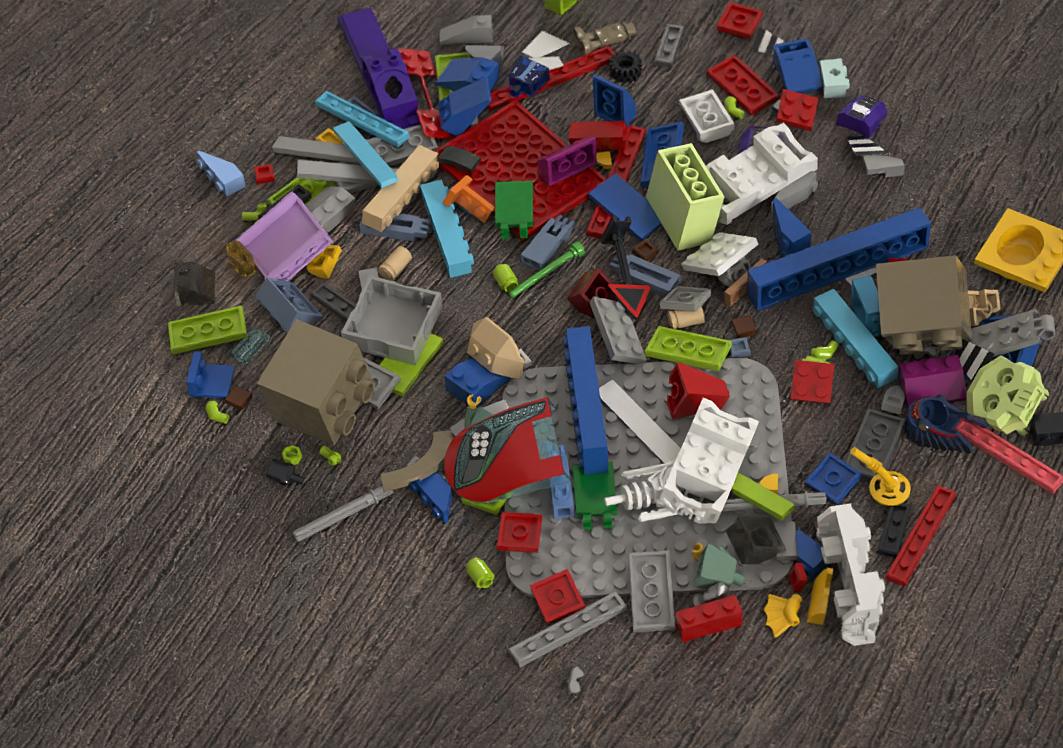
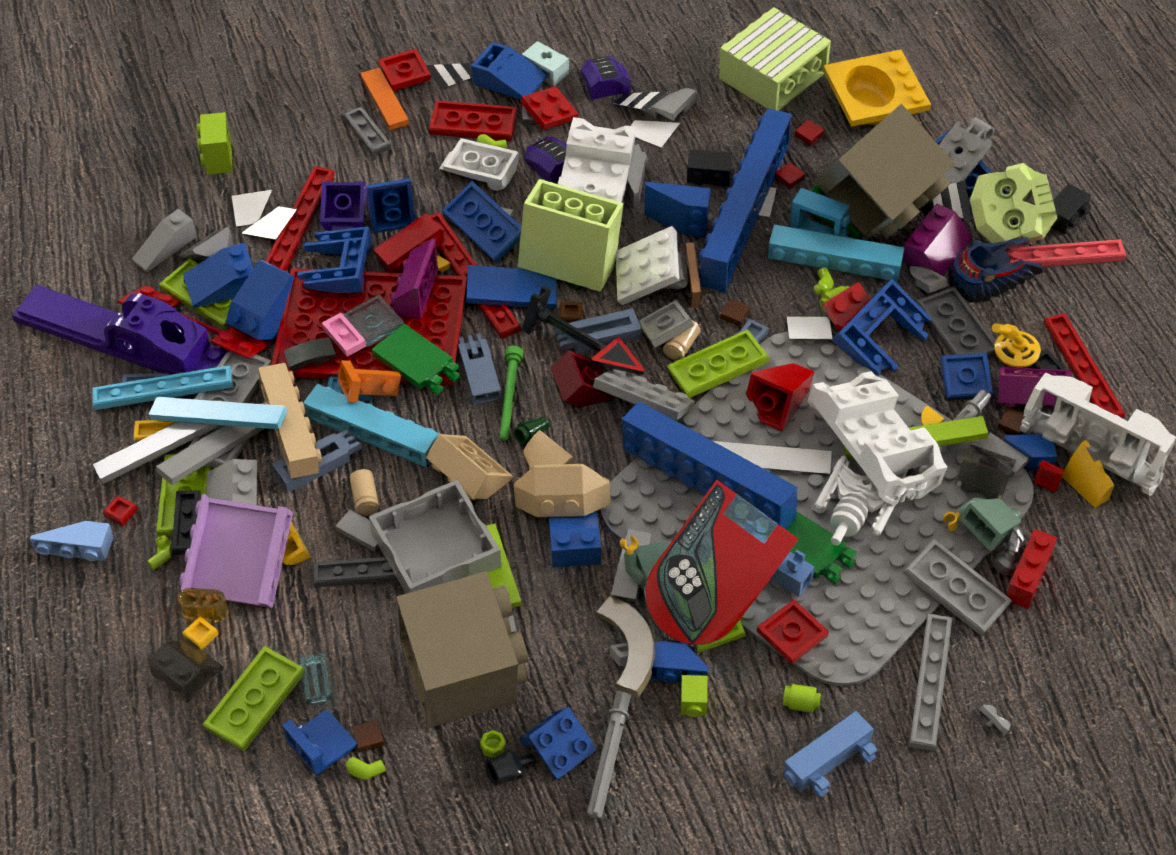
camera: 50 degrees left, 0 degrees up
(224, 274) = (200, 633): none -> yellow tile
(286, 303) = (308, 611): sand blue slope -> none
(324, 484) = (560, 742): none -> blue bracket
(332, 456) = (535, 711): lime arm -> none
(424, 521) = (694, 695): none -> lime brick
(454, 613) = (828, 752): none -> medium blue brick
(468, 293) = (468, 463): none -> tan slope
(491, 161) = (344, 334): none -> bright pink plate
(505, 277) = (482, 426): lime brick -> none
(518, 322) = (544, 451): none -> tan slope
(519, 165) = (374, 319): none -> clear light blue tile
(527, 77) = (280, 239): clear blue torso -> none
(530, 301) = (526, 430): none -> dark green cone
(536, 129) = (349, 276): none -> blue wedge
(557, 596) = (893, 658): red plate -> none
(581, 83) = (343, 205): none -> dark purple slope
(602, 37) = (298, 164): dark tan piece -> none
(625, 59) = (352, 164): black tyre -> none
(704, 32) = (384, 99): none -> orange tile
(774, 371) = (809, 328): none -> white sticker
(782, 613) = (1071, 516): yellow arm -> none
(791, 394) = (889, 301): none -> blue wedge
(845, 219) = (709, 167): none -> black brick
(849, 174) = (654, 131): none -> white sticker
(879, 521) = (1018, 384): none -> magenta slope
(950, 248) = (809, 132): none -> red tile
(982, 180) = (774, 59): none -> yellowish green brick

